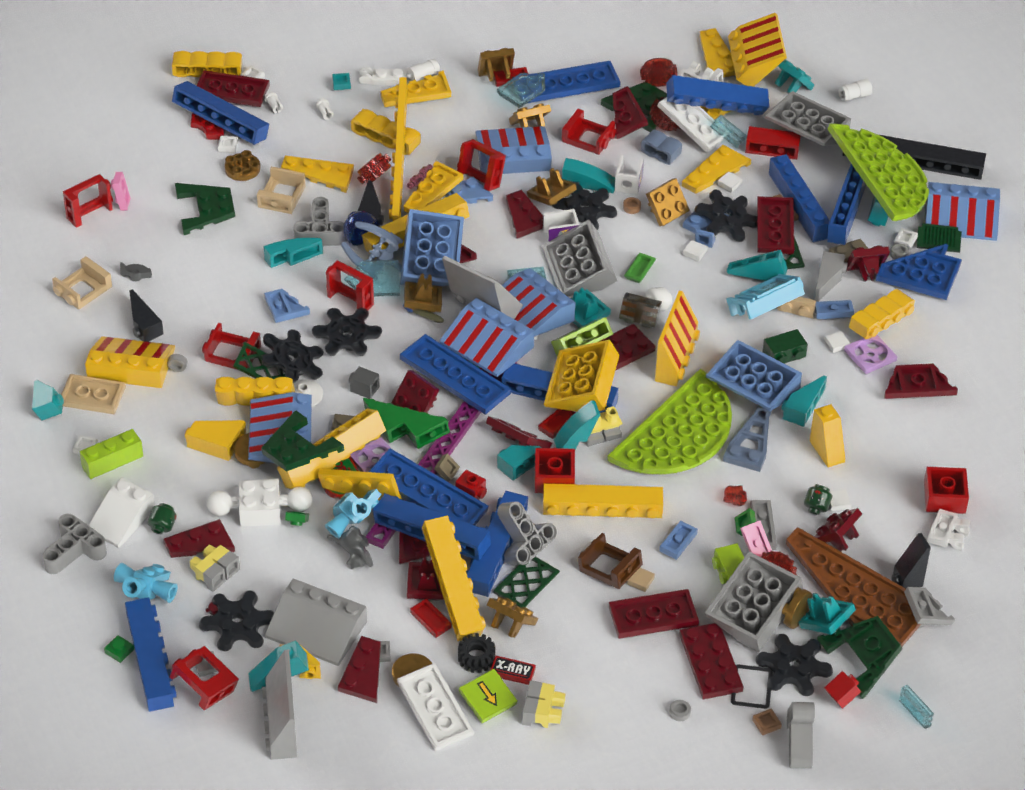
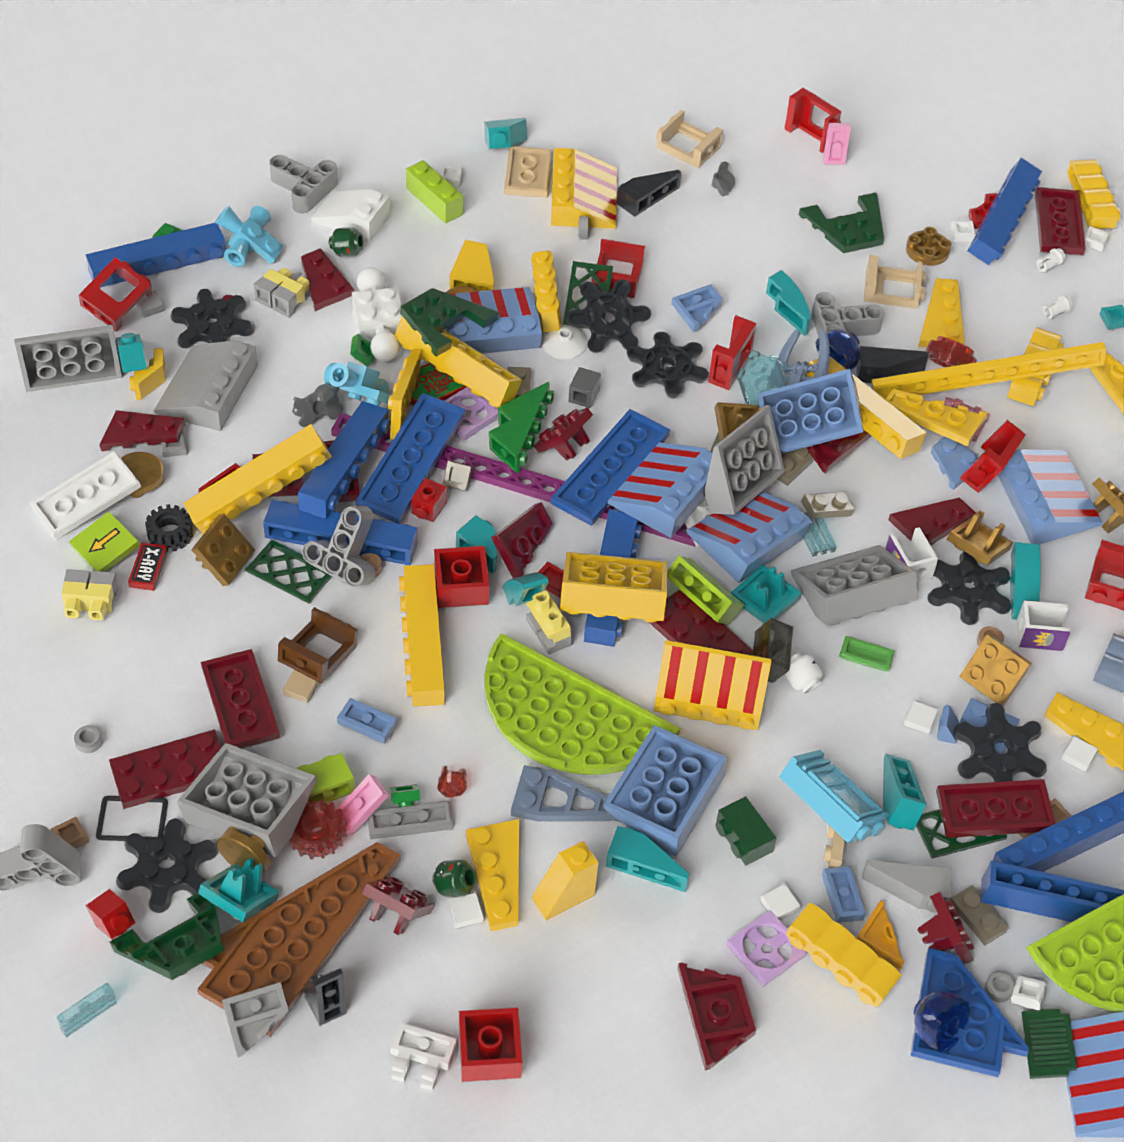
camera: 80 degrees right, 5 degrees up
(505, 263) = (827, 505): none -> dark tan plate
(795, 480) = (496, 866): none -> yellow wing
(861, 299) = (880, 936): none -> light orange tile
(933, 272) = (940, 1018): none -> clear blue cylinder

